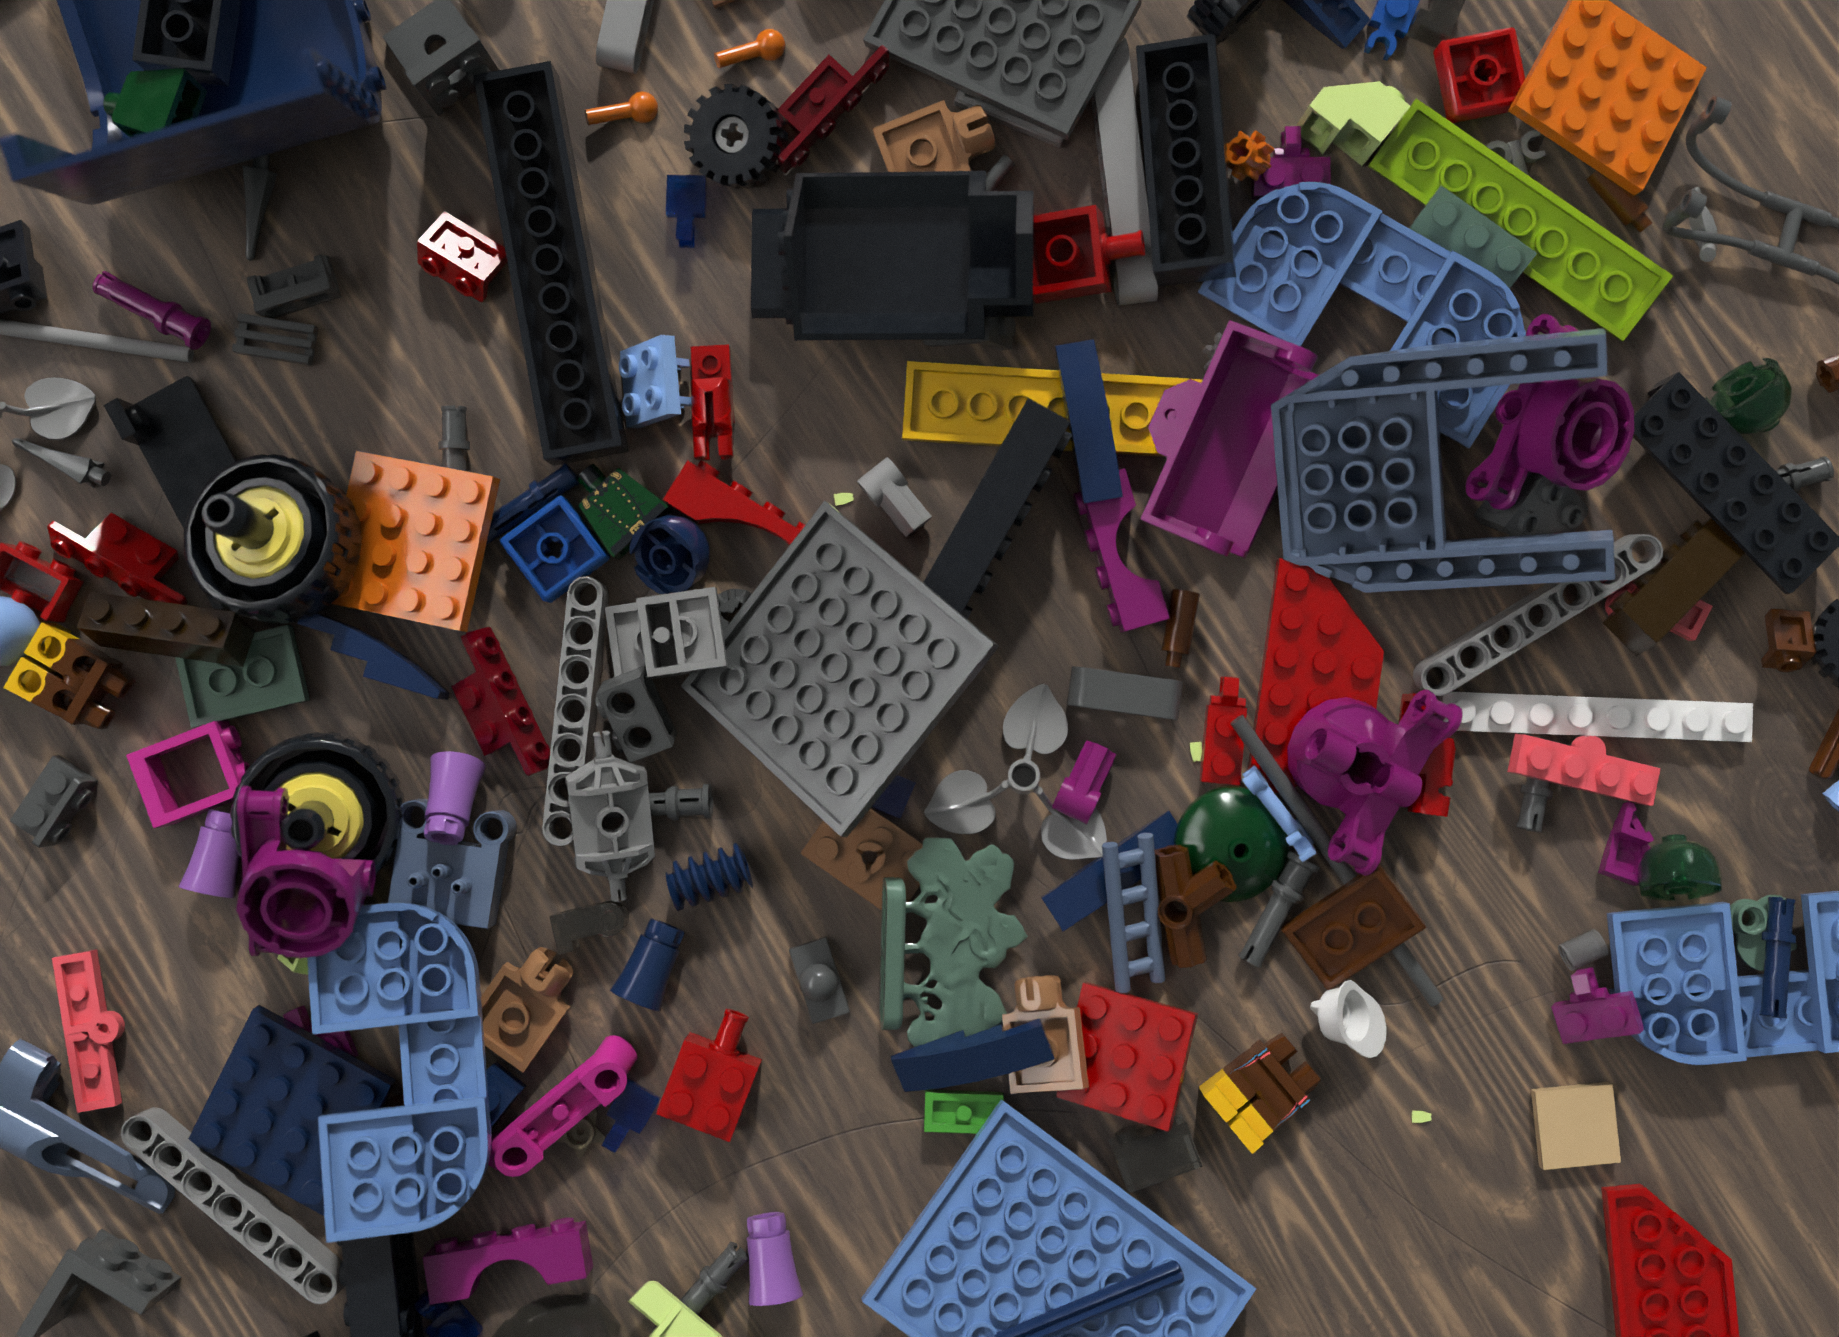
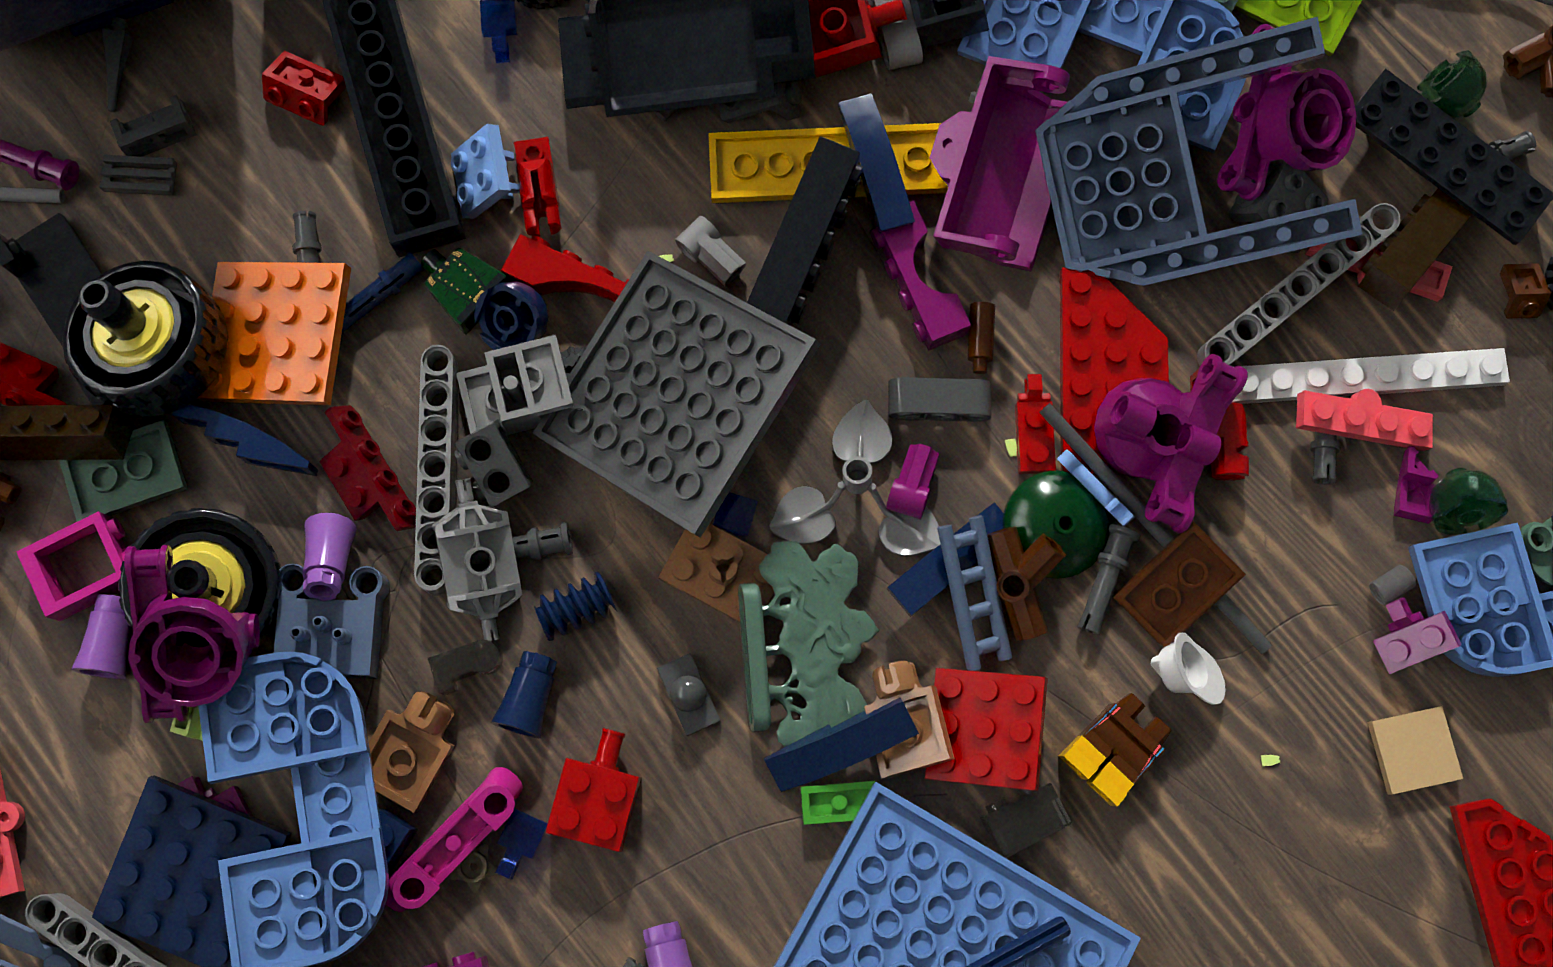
camera: 10 degrees left, 10 degrees down
(530, 545) = (409, 305): blue brick -> none

